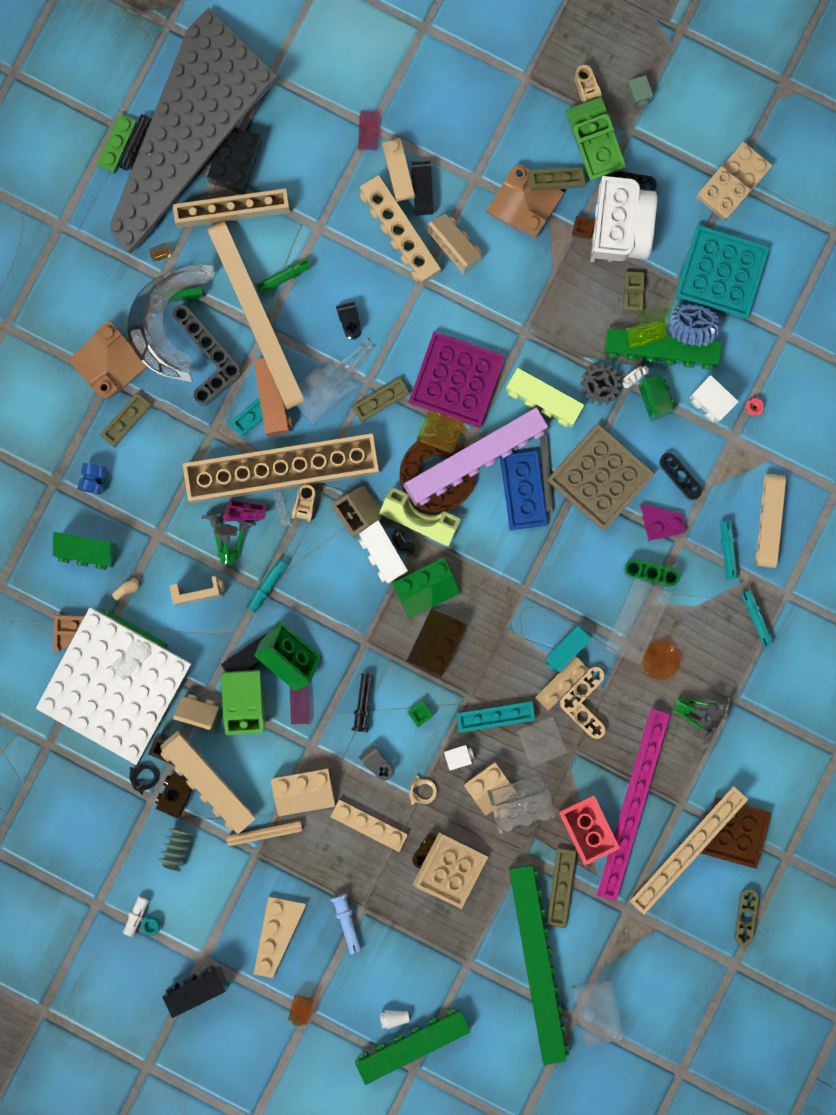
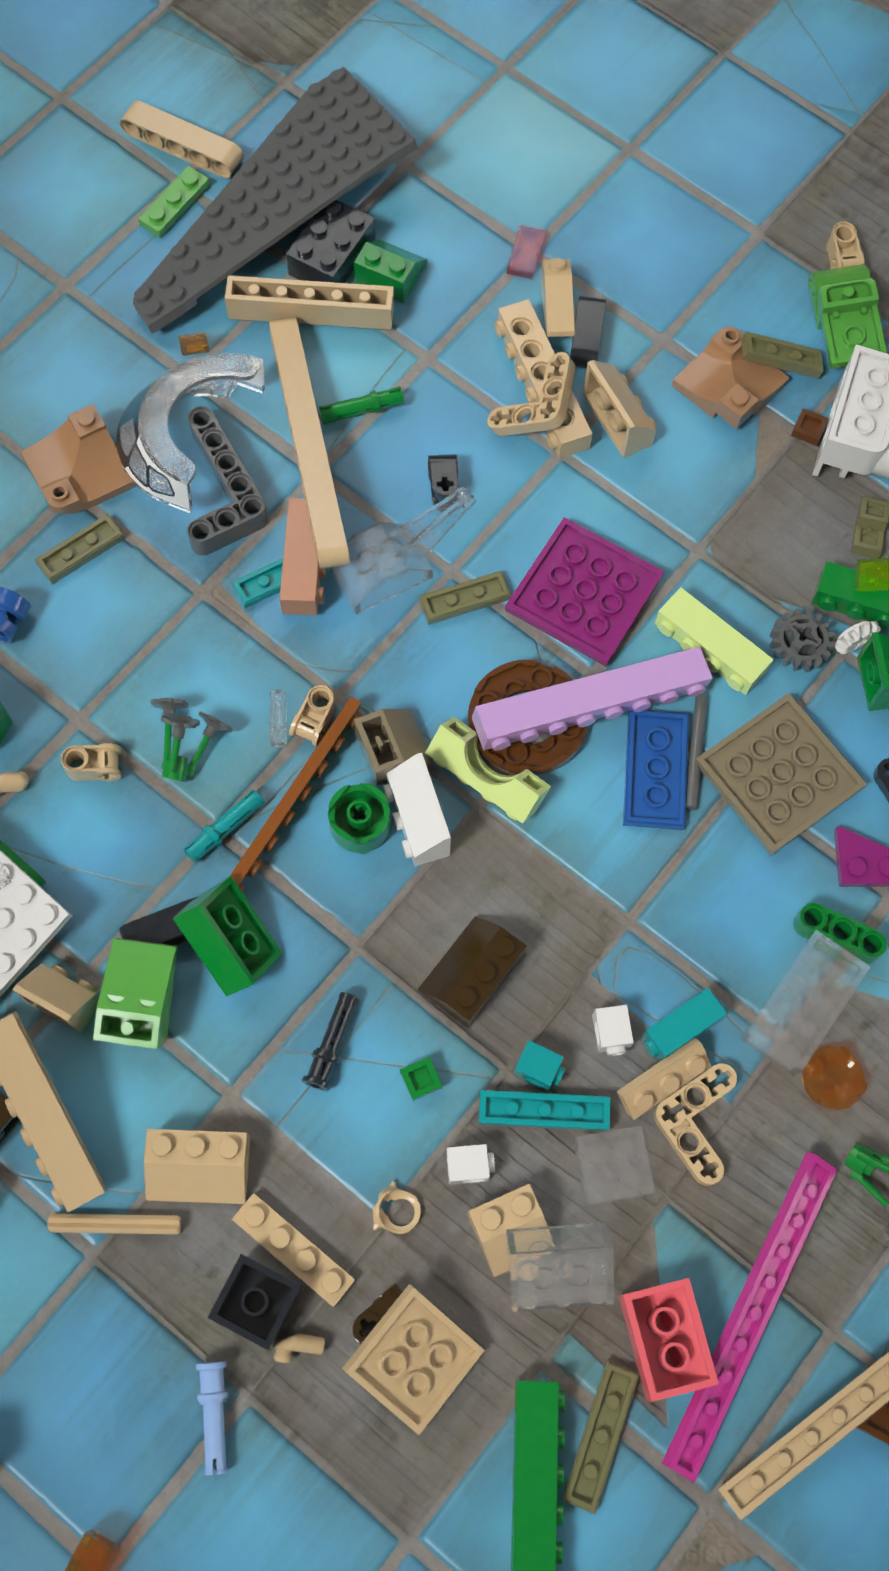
camera: 10 degrees right, 15 degrees down
(109, 93) = (181, 139): none -> tan beam
(136, 138) = (192, 209): black pin -> none
(177, 563) = (95, 762): none -> tan piece
(183, 599) = (111, 813): tan panel -> none
(187, 294) = (215, 399): green tile -> none
(243, 510) = (220, 706): magenta wing -> none
(277, 929) = (93, 1398): tan wing -> none
(278, 165) = (388, 266): none -> green slope
(280, 468) = (289, 656): tan brick -> none
(300, 706) = (229, 1023): clear pink tile -> none
(306, 554) = (297, 791): none -> dark orange plate
(344, 554) = (357, 801): none -> green brick
(355, 859) = (255, 1302): none -> black brick
(374, 761) = (329, 1142): dark grey piece -> none
(384, 875) = (298, 1343): none -> tan arm
(401, 543) = (449, 806): black arm -> none
(403, 260) = (501, 418): none -> tan beam
(426, 588) = (473, 880): green slope -> none
(440, 431) = (545, 654): clear yellow plate -> none
(488, 692) = (539, 1066): none -> teal brick
(526, 661) = (612, 1030): none -> white brick

